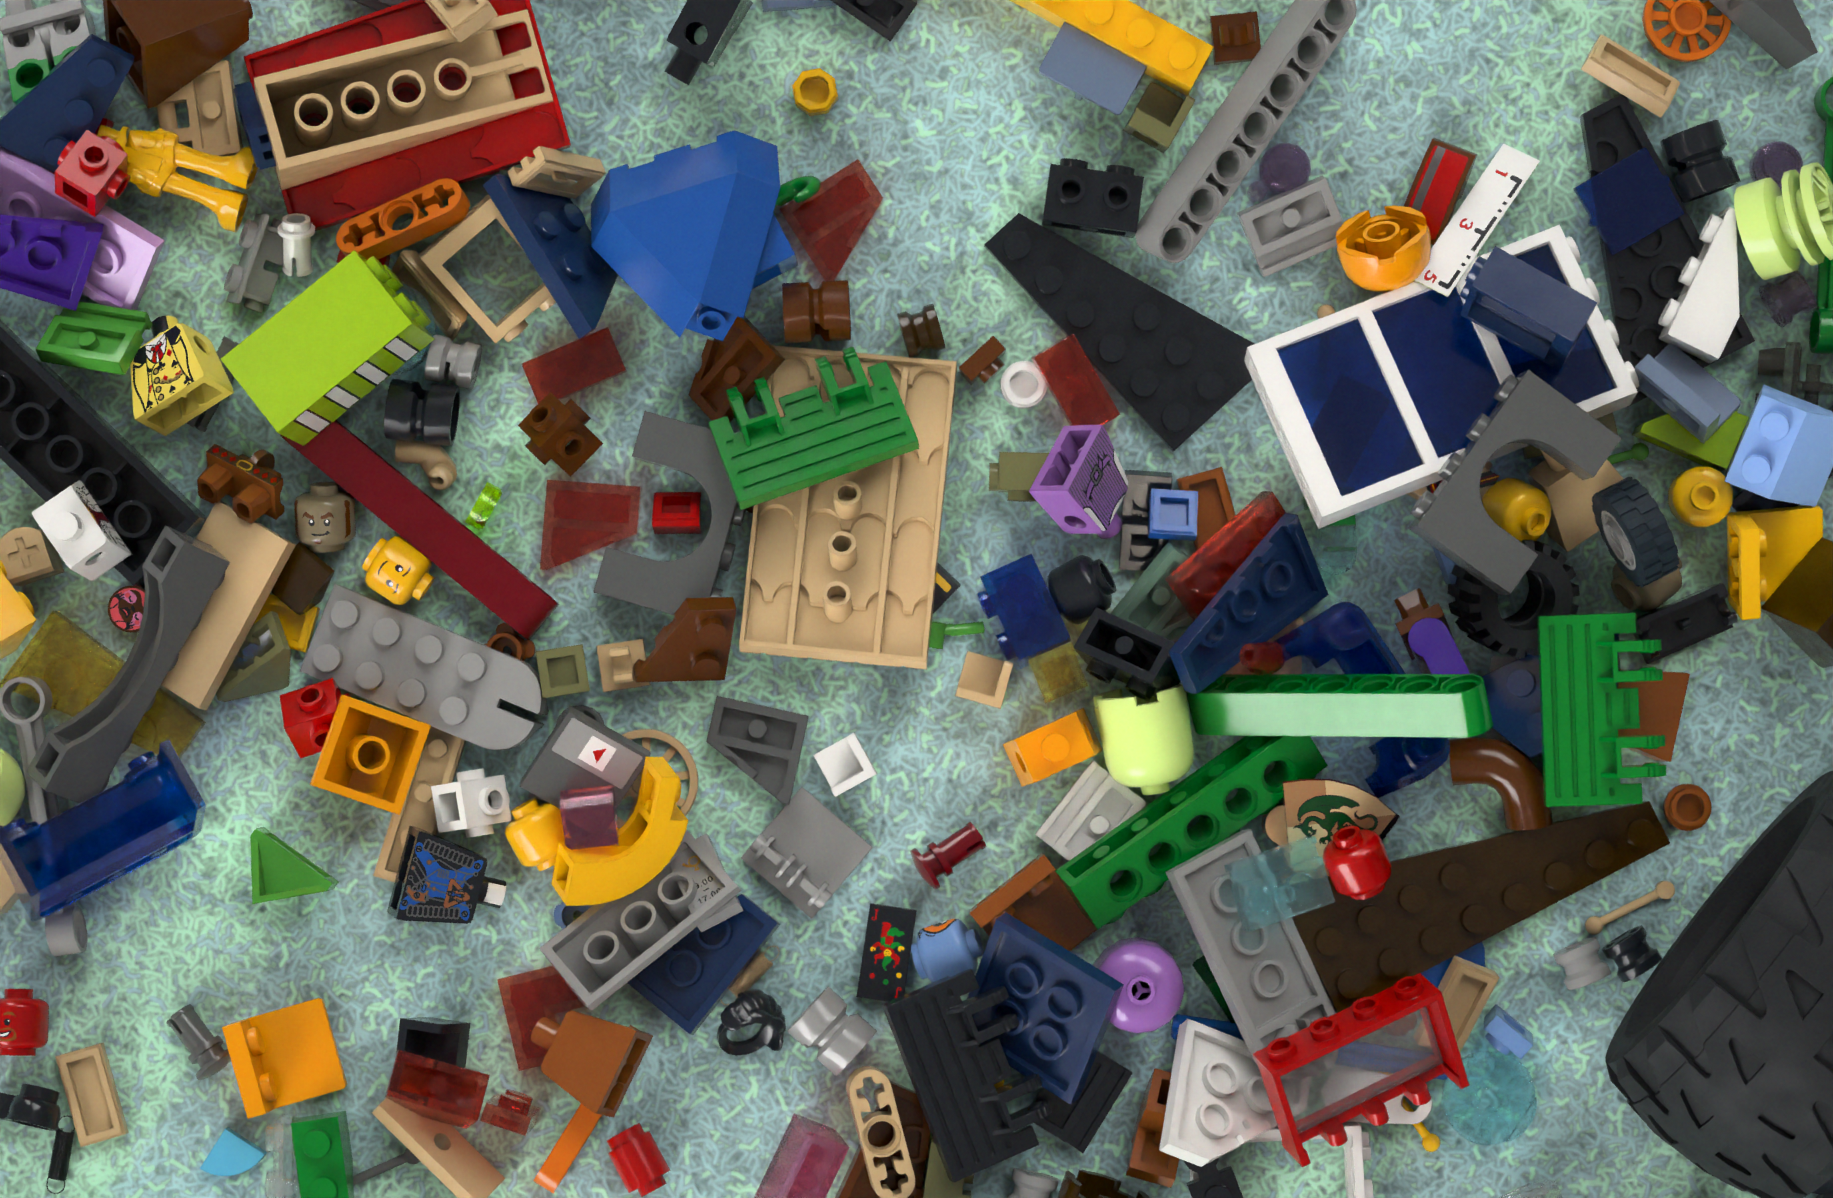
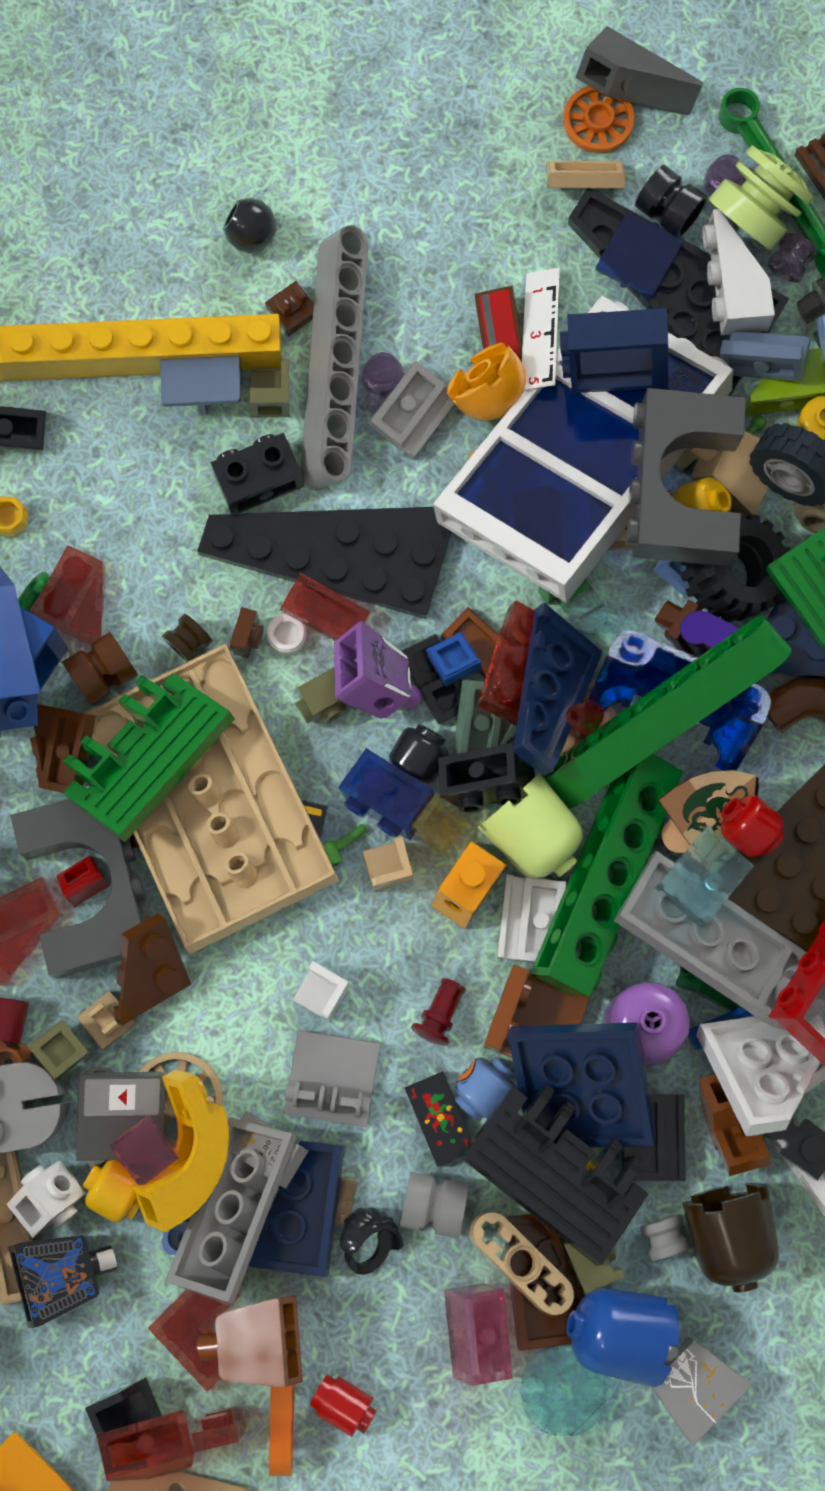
camera: 35 degrees left, 10 degrees down
(759, 742) = (245, 1015): dark grey wing -> none

